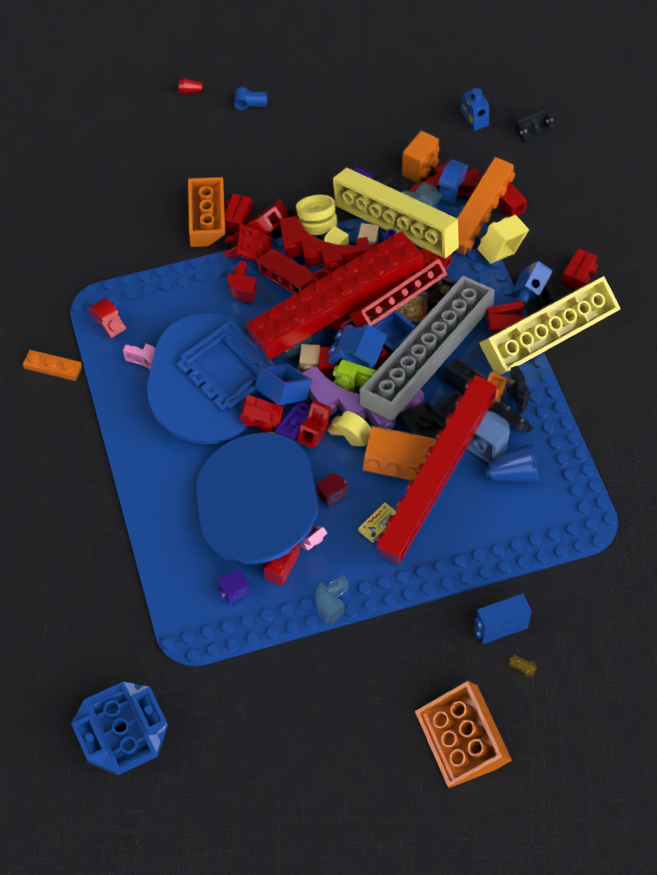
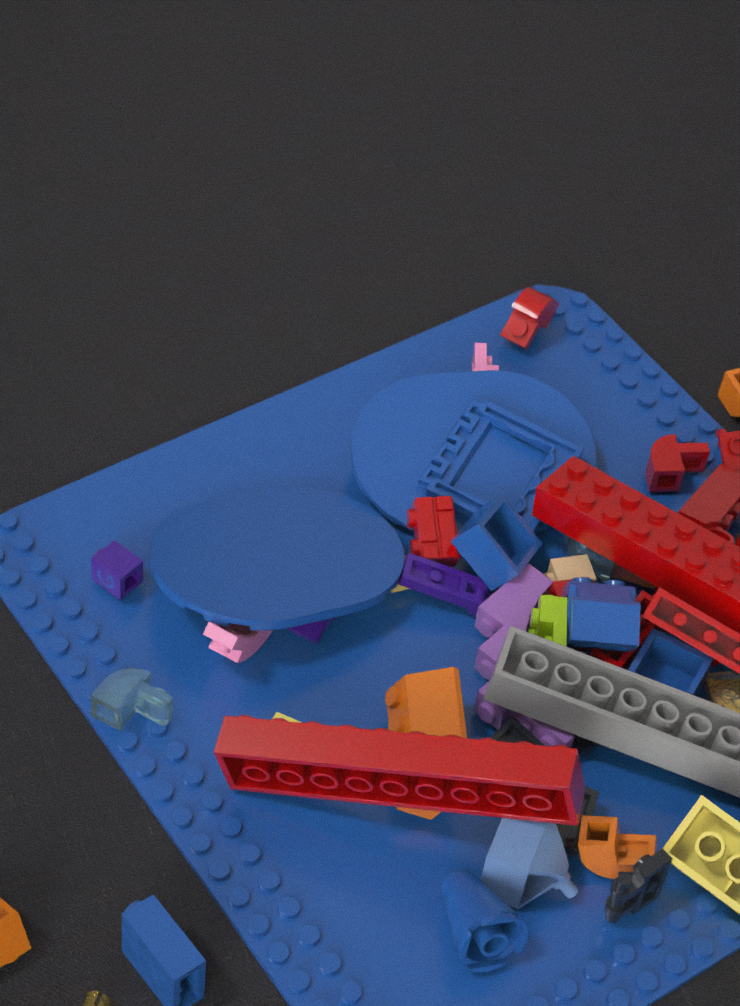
camera: 65 degrees right, 10 degrees down
(52, 365) = (430, 290): orange plate -> none
(279, 569) = (170, 623): red brick -> none
(315, 426) = (439, 612): red brick -> none
(331, 489) = (335, 658): dark red brick -> none
(353, 428) = (459, 651): light yellow brick -> none
(458, 374) = (635, 799): black hinge -> none
(512, 417) = (573, 885): black plate -> none

